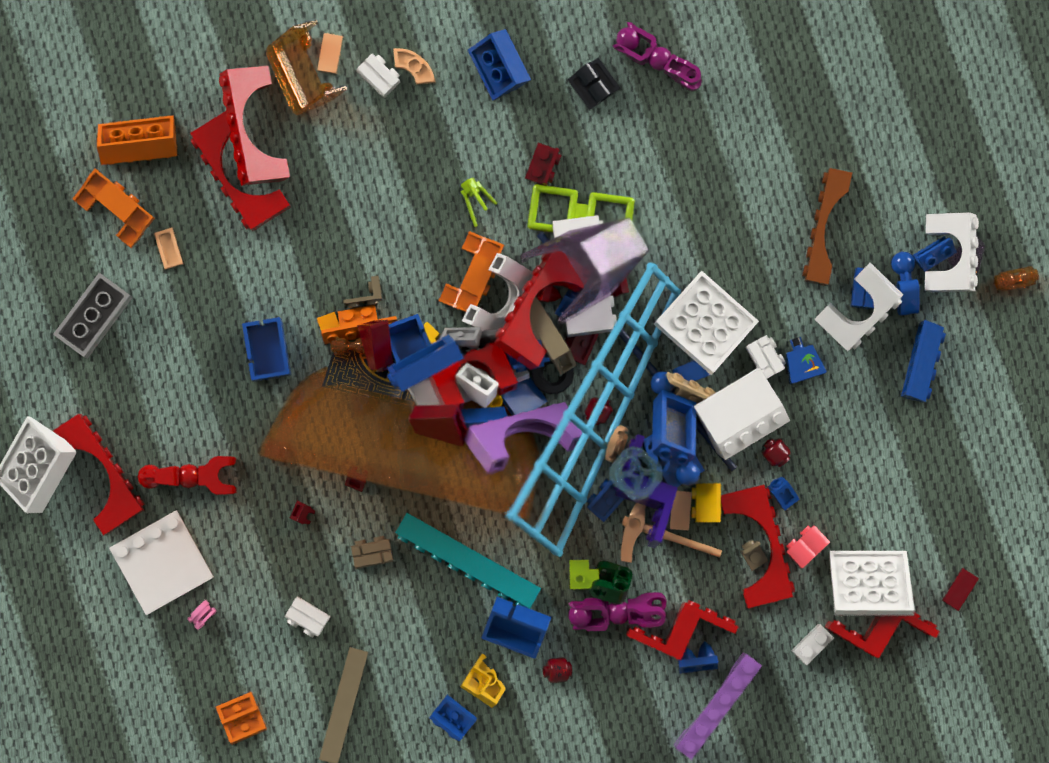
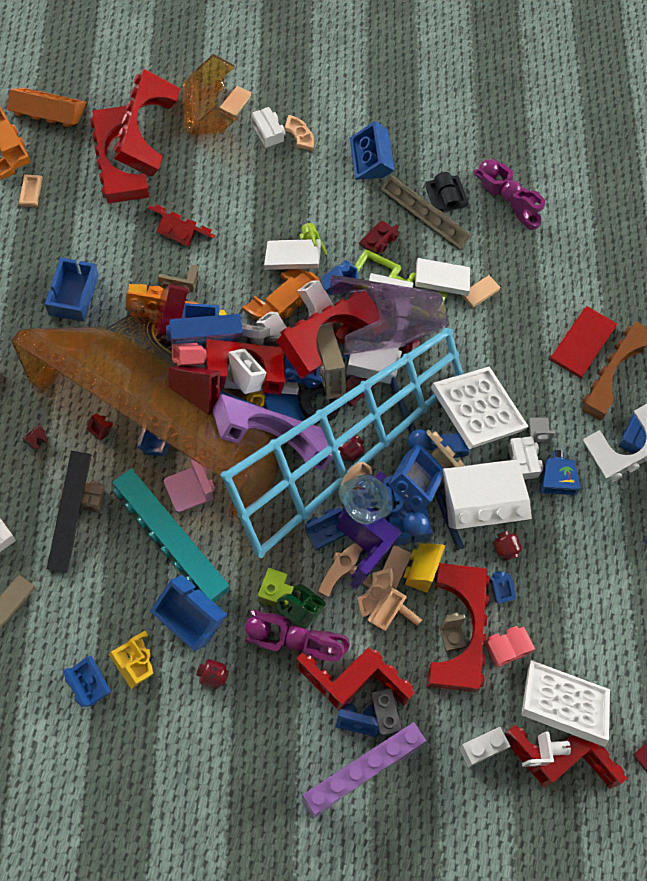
camera: 15 degrees right, 20 degrees down
(337, 234) = (178, 229): none -> red bracket
(369, 575) = (69, 511): none -> black tile
(420, 395) = (188, 354): none -> coral brick
(461, 515) = (189, 487): none -> lavender bracket
(464, 222) = (292, 254): none -> white tile
(524, 235) = (344, 269): none -> blue brick
(579, 115) = (426, 212): none -> dark tan tile
(623, 188) = (442, 276): none -> white tile
(666, 187) = (481, 291): none -> light nougat tile
(674, 542) = (379, 584): none -> light nougat tile
(687, 554) = (387, 608): none -> light nougat tile
(719, 648) = (386, 712): none -> dark grey bracket
(770, 320) = (540, 430): none -> light grey bracket
(785, 204) = (583, 341): none -> red tile
(866, 635) = (547, 750): none -> white bracket

